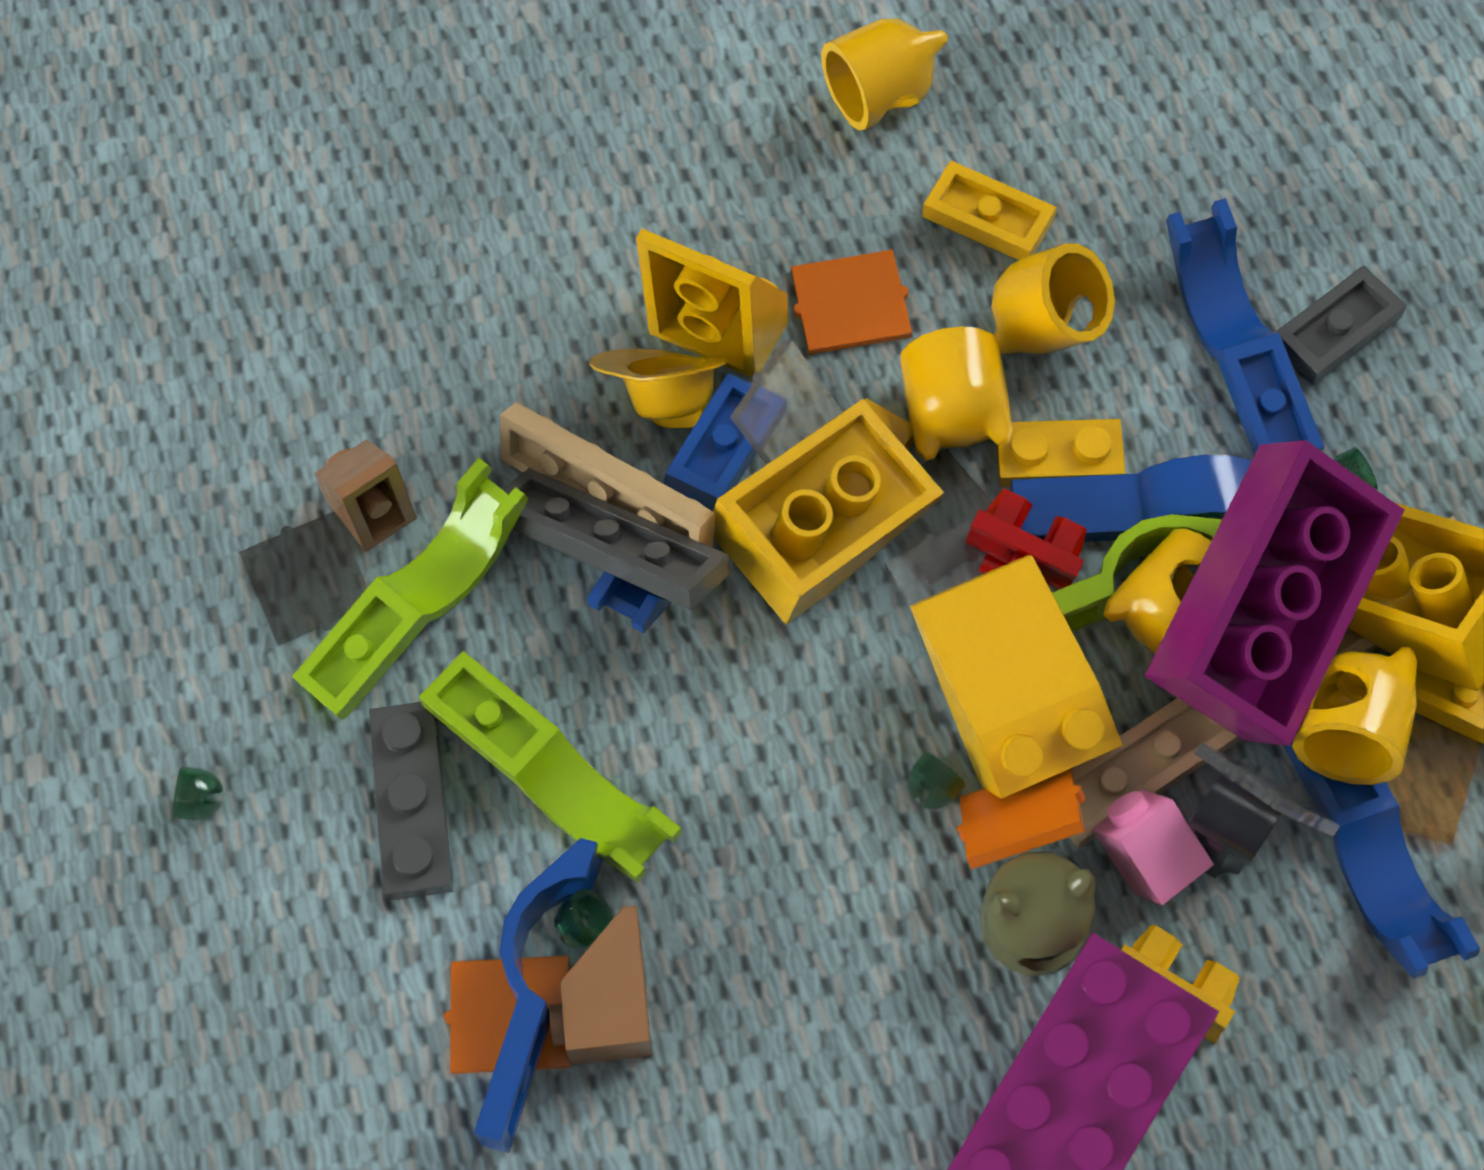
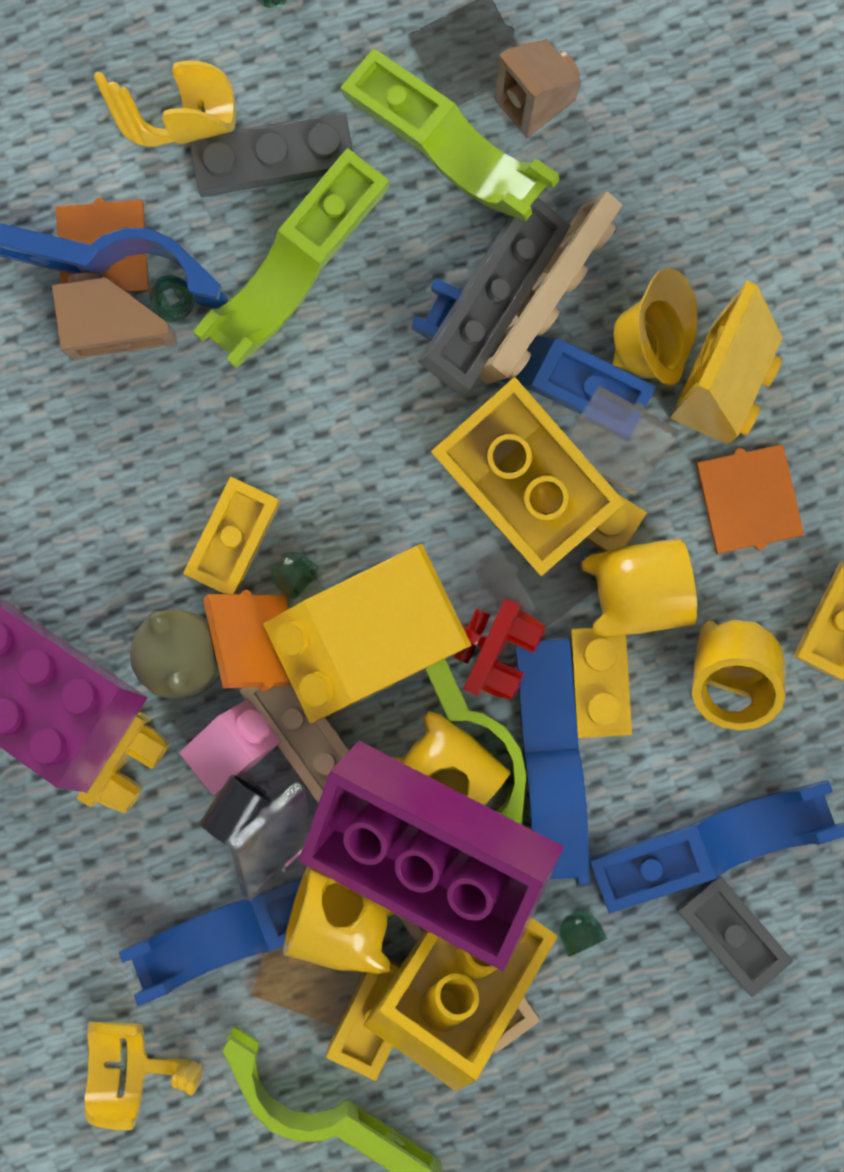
camera: 85 degrees right, 20 degrees up
(314, 888) = (199, 86): none -> yellow helmet
(890, 851) = (232, 537): none -> yellow plate

